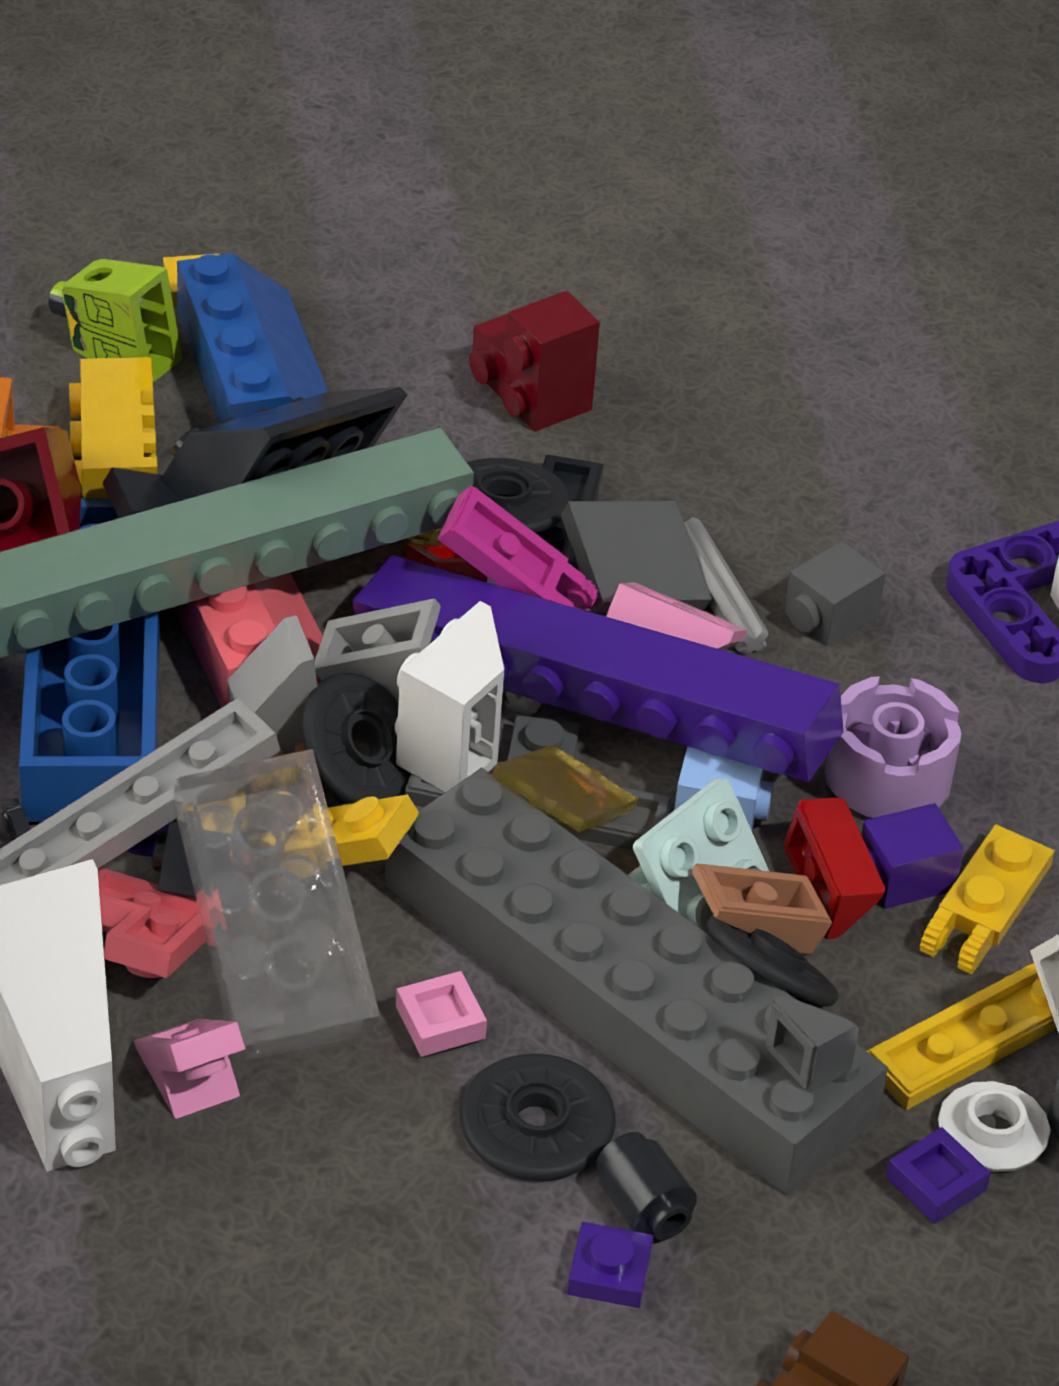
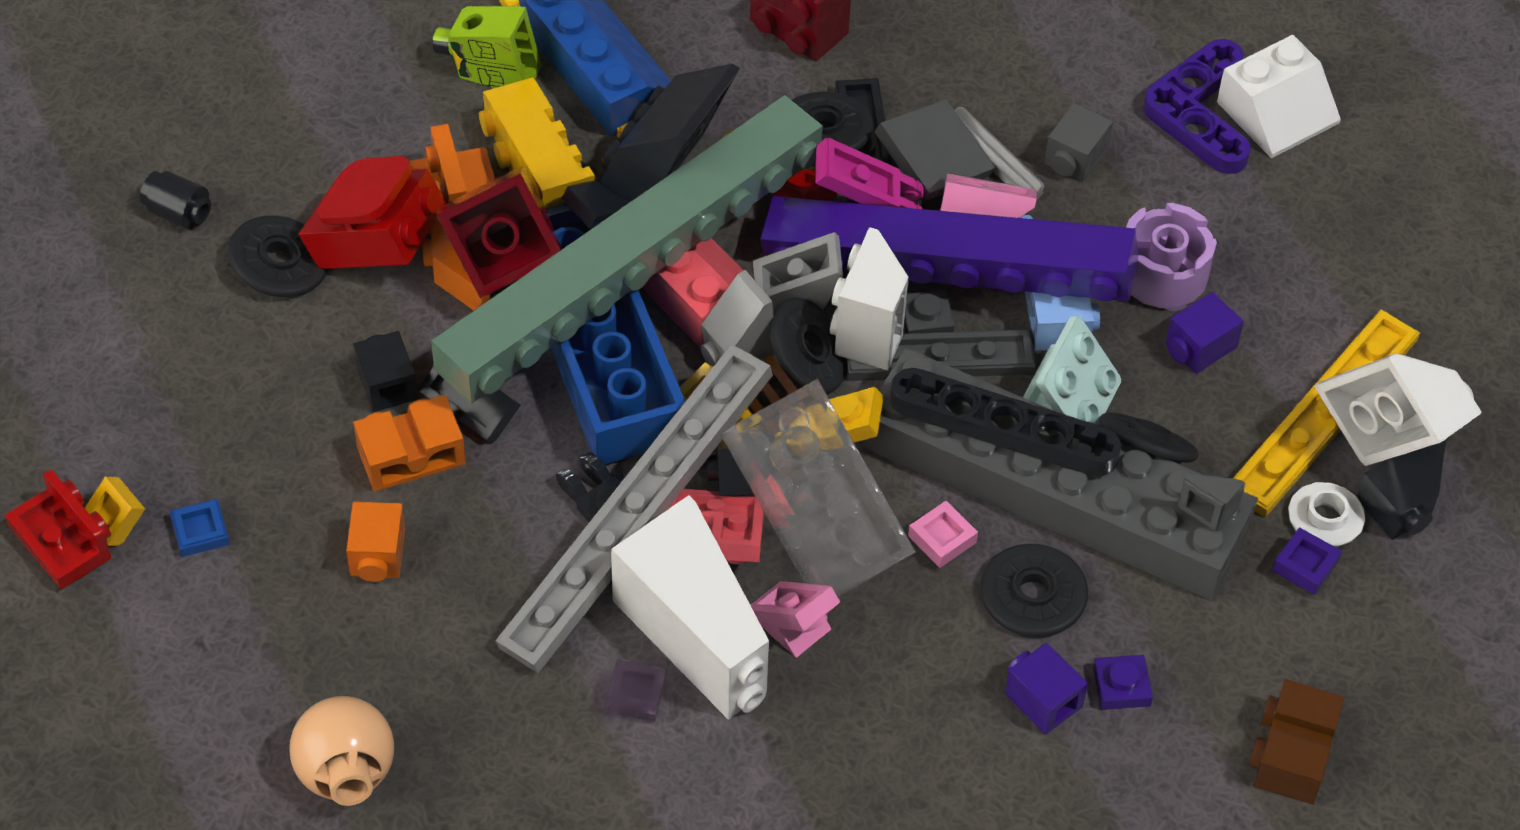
camera: 15 degrees left, 10 degrees up
(493, 1239) = (1045, 687): none -> dark purple brick
(565, 787) = (964, 346): clear yellow piece -> none
(580, 906) = (1021, 438): none -> black beam
(646, 1186) = (1127, 622): black brick -> none
(765, 901) = (1129, 396): nougat slope -> none
(834, 857) = (1156, 353): red slope -> none
(988, 895) = (1262, 345): yellow hinge -> none

